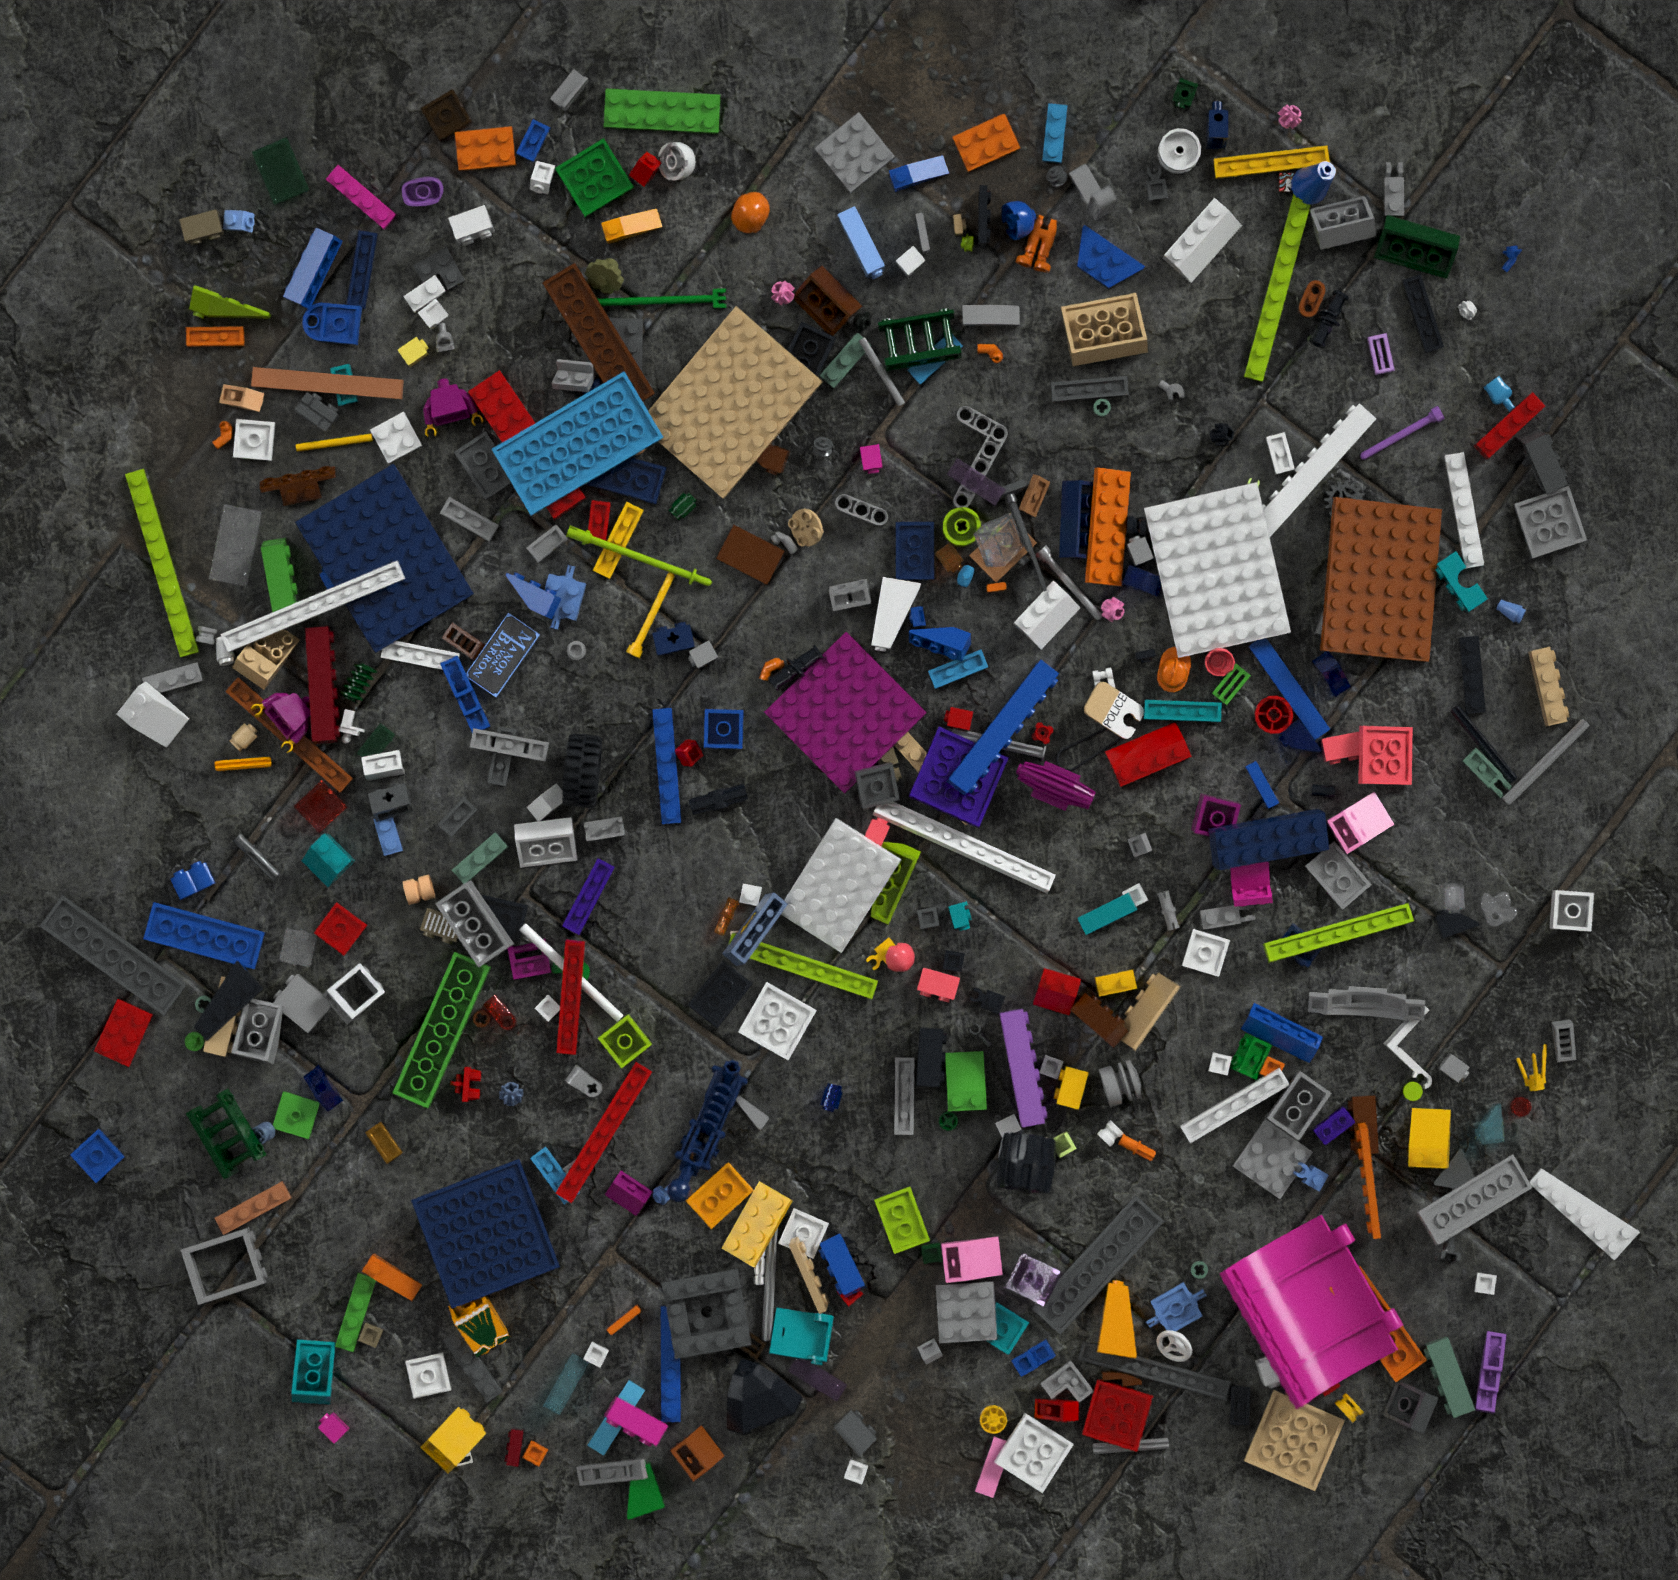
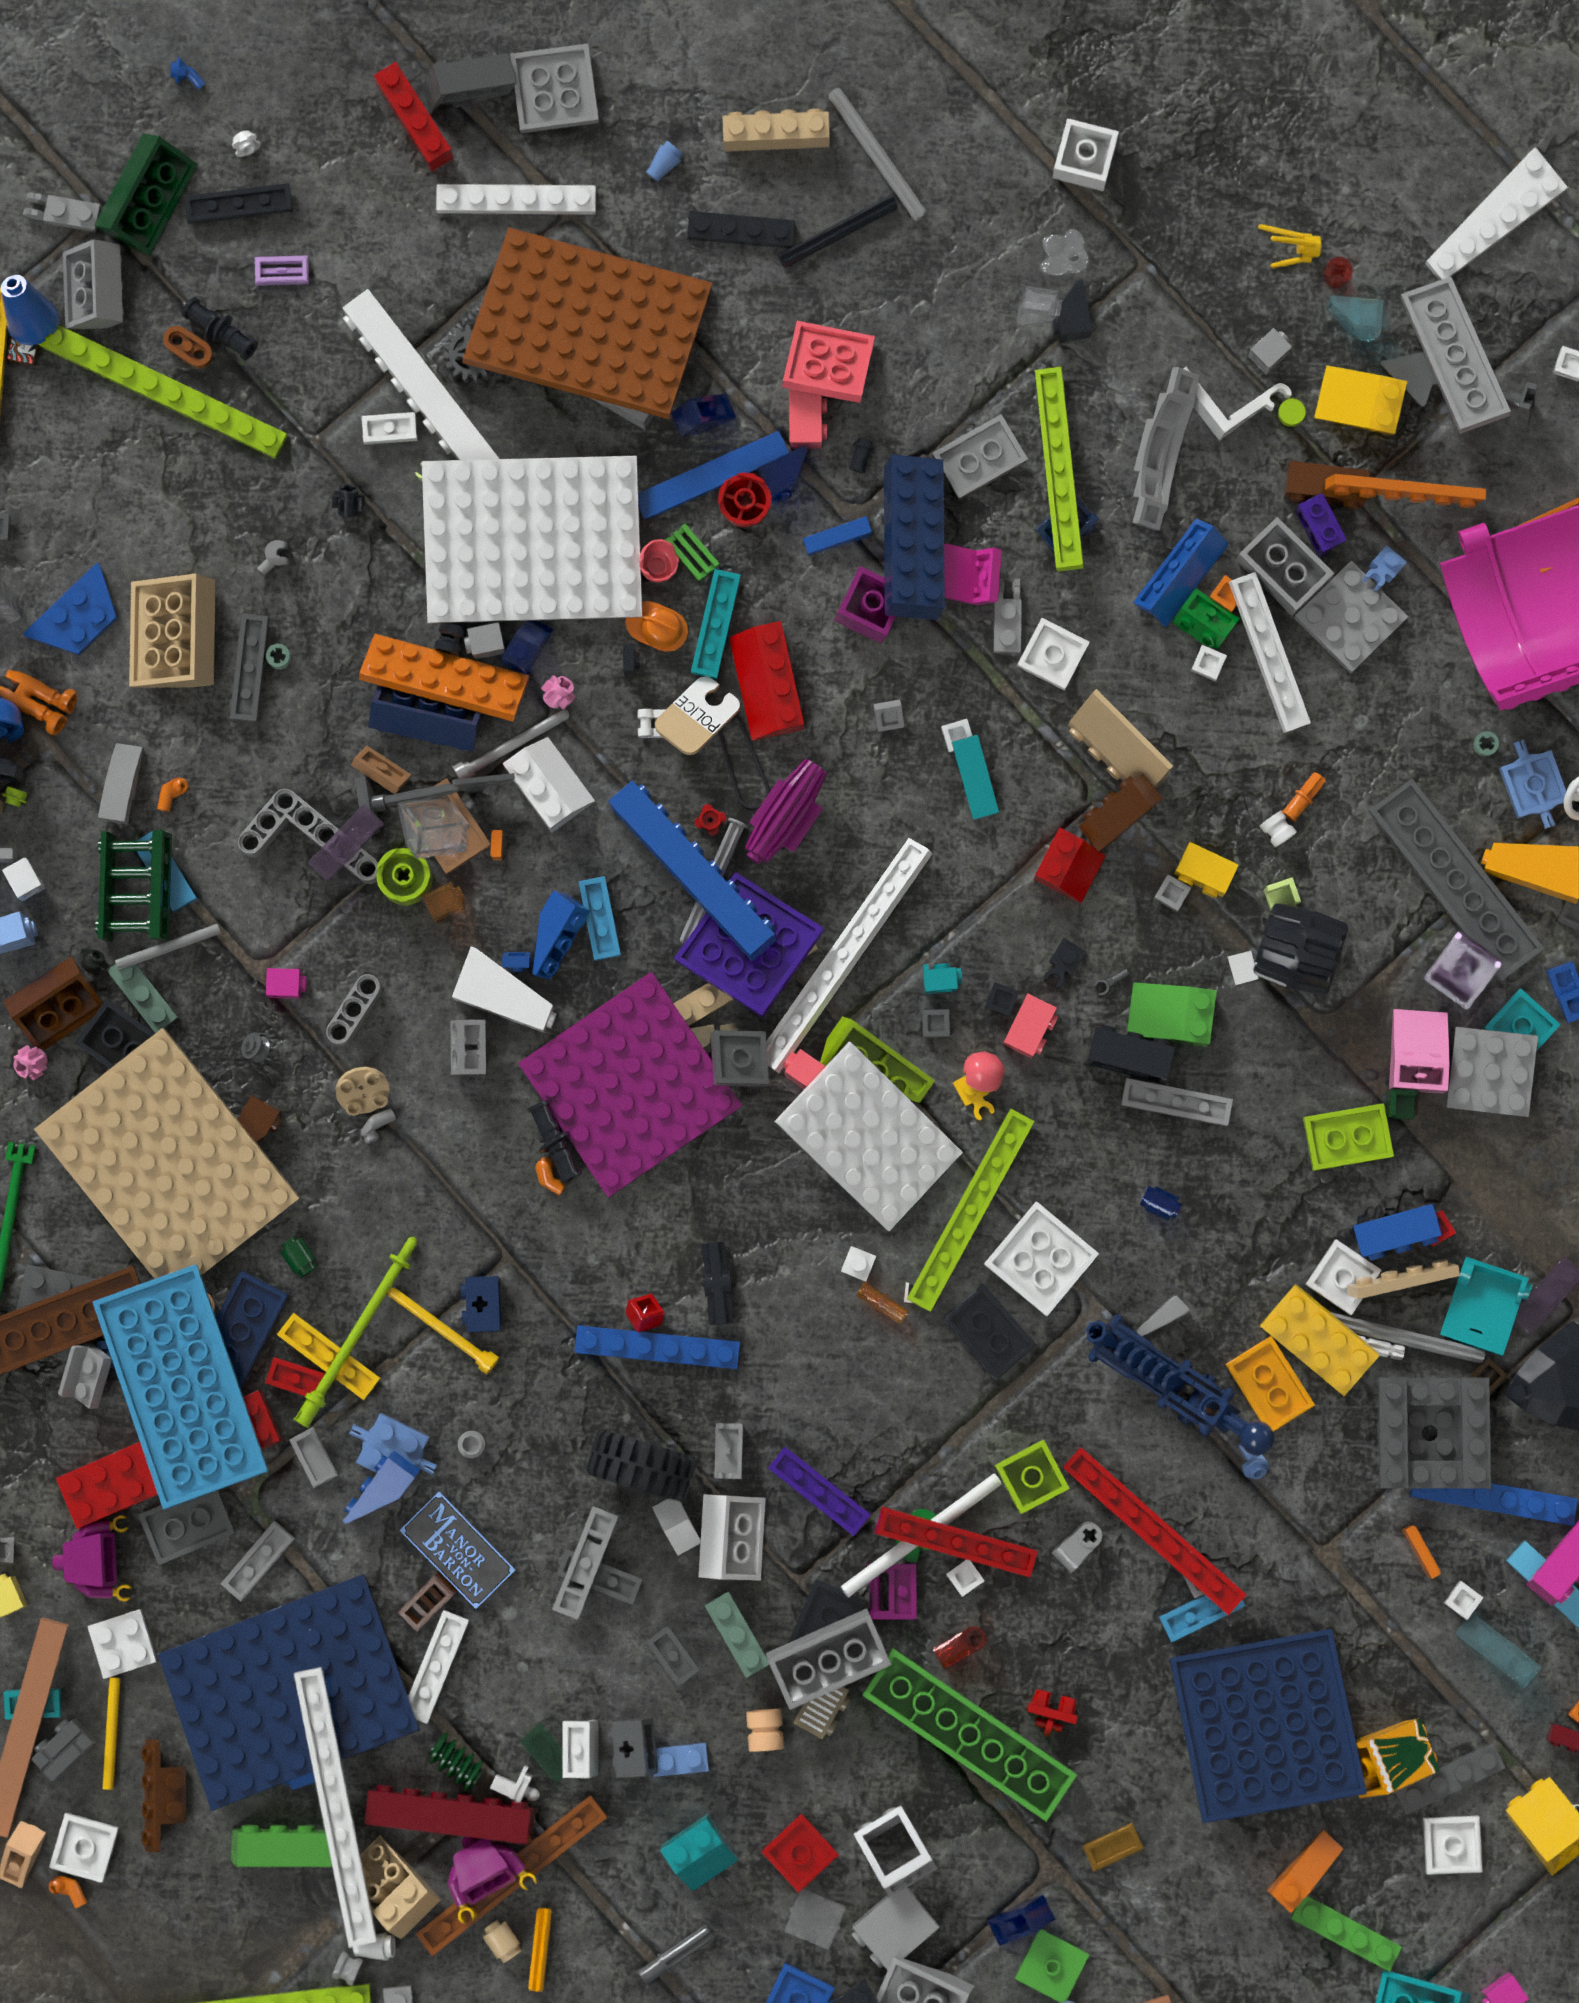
camera: 80 degrees left, 5 degrees down
(235, 545) = (228, 1902): clear tile -> none
(320, 806) = (621, 1849): clear red slope -> none
(370, 1335) = (1382, 1916): dark tan plate -> none
(465, 694) = (502, 1612): blue slope -> none
(483, 1012) = (955, 1670): reddish brown bush -> none
(511, 1093) = (1076, 1652): sand blue gear -> none
(628, 1193) = (1244, 1512): magenta panel -> none
(702, 655) = (512, 1267): light grey brick -> none
(723, 729) = (620, 1257): blue brick -> none
(750, 554) = (385, 1176): reddish brown tile -> none
(755, 929) = (908, 1264): sand blue brick -> none
(915, 550) = (424, 947): dark blue plate -> none
(930, 1351) = (1537, 1132): light grey plate -> none
(950, 1123) = (1226, 1046): dark green wheel -> none
(958, 718) = (668, 929): red brick -> none
(965, 576) = (473, 884): dark azure piece -> none
(1021, 1067) = (1167, 930): medium lavender brick -> none
(1115, 982) = (1072, 783): yellow brick -> none
(1120, 1083) = (1212, 801): light grey wheel -> none
(1168, 910) = (985, 694): light grey pin -> none
(1202, 240) = (77, 478): white slope -> none
(1359, 823) = (914, 415): bright pink slope -> none
(1433, 416) = (380, 213): medium lavender piece -> none
(1467, 597) = (635, 216): teal arch -> none
(1485, 771) = (875, 235): sand green hinge -> none
(1499, 393) = (366, 122): dark azure piece -> none
(1556, 1025) = (1247, 207): light grey slope -> none

